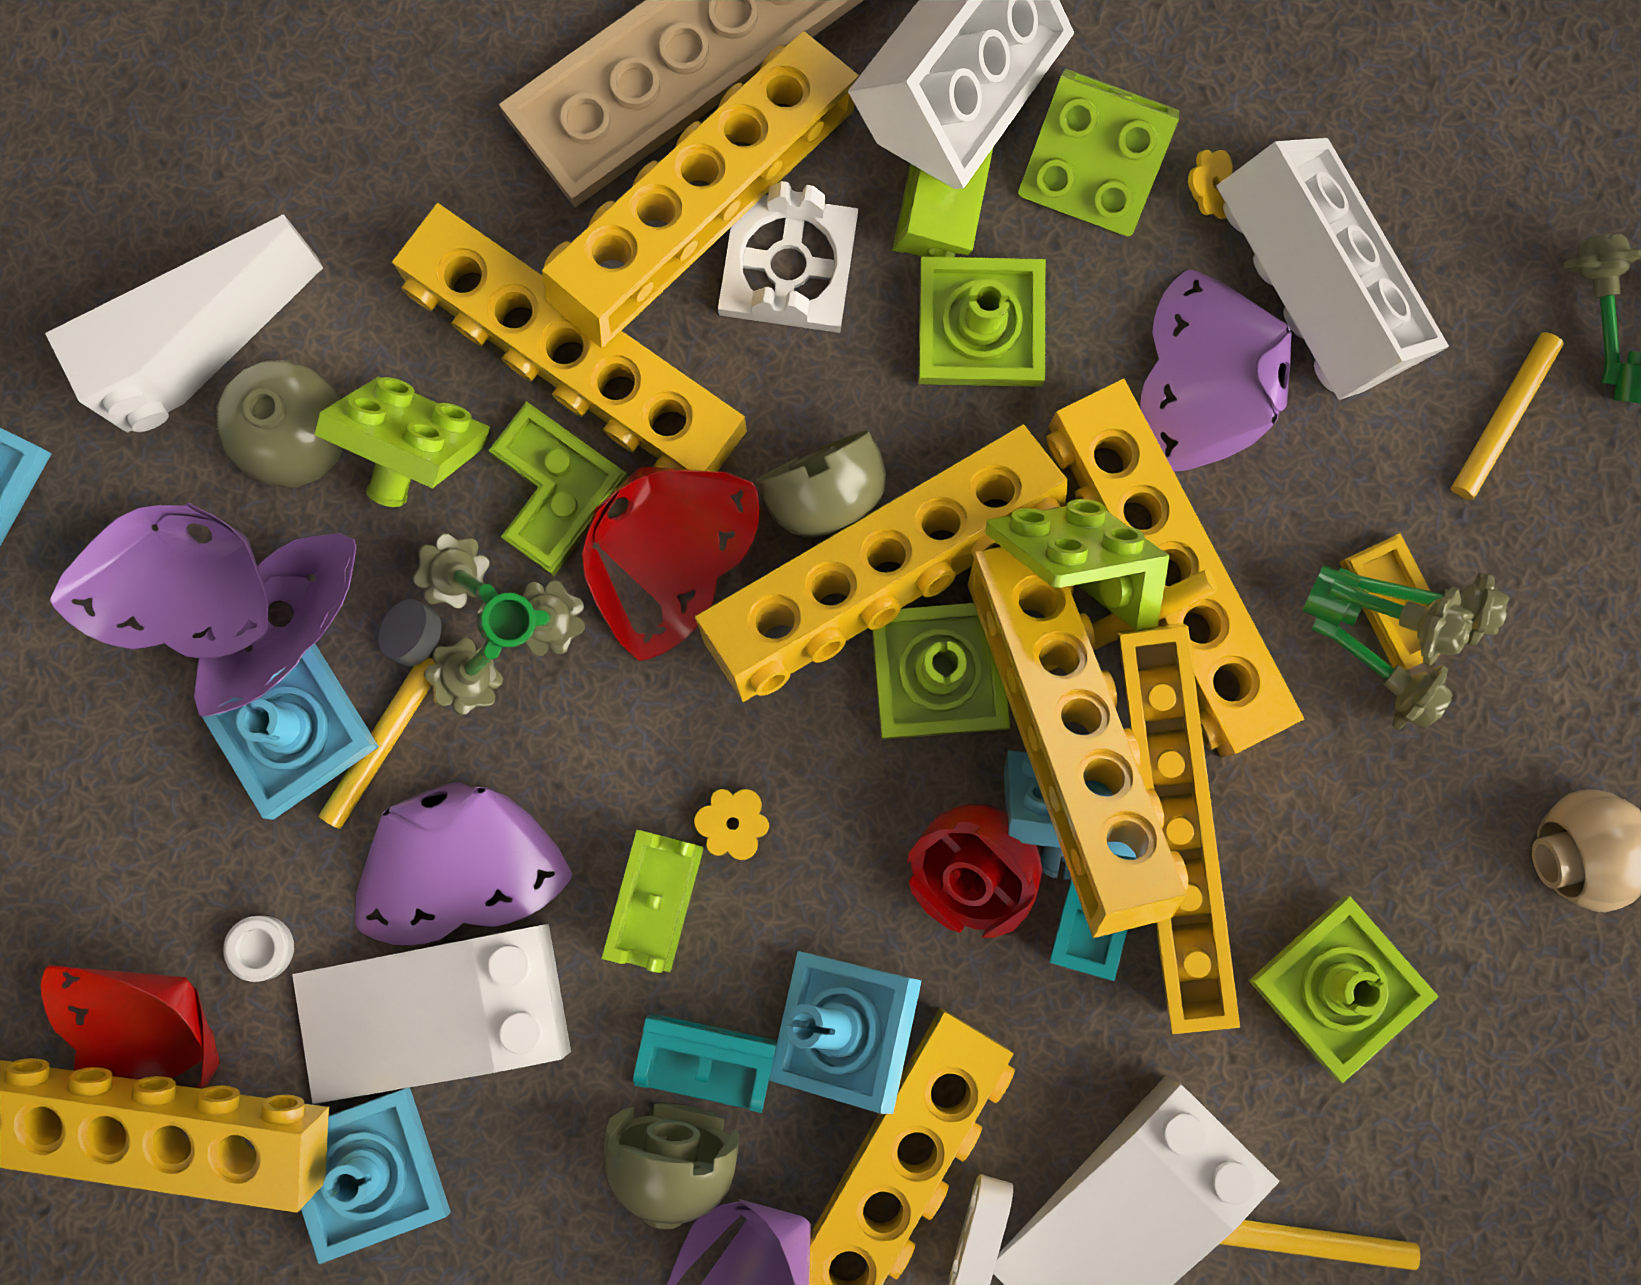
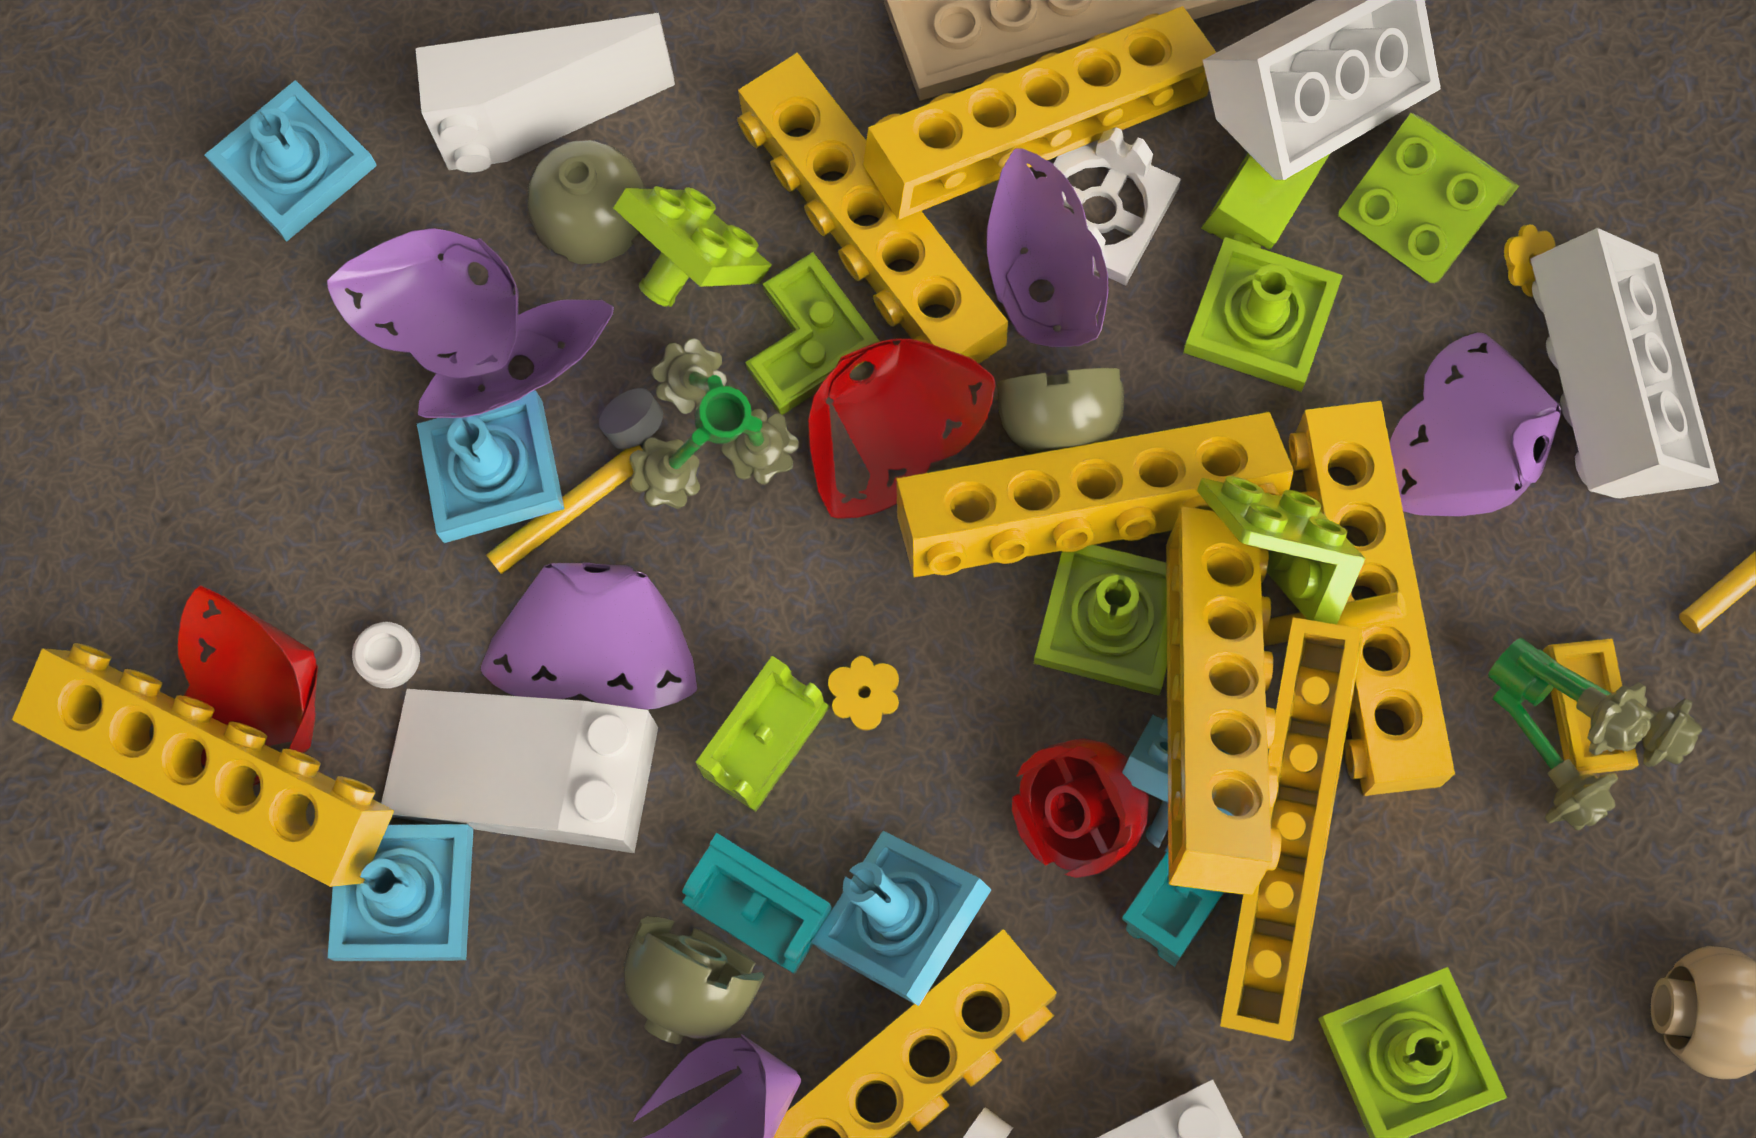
camera: 30 degrees right, 10 degrees down
(762, 323) = (1059, 250): none -> medium lavender piece

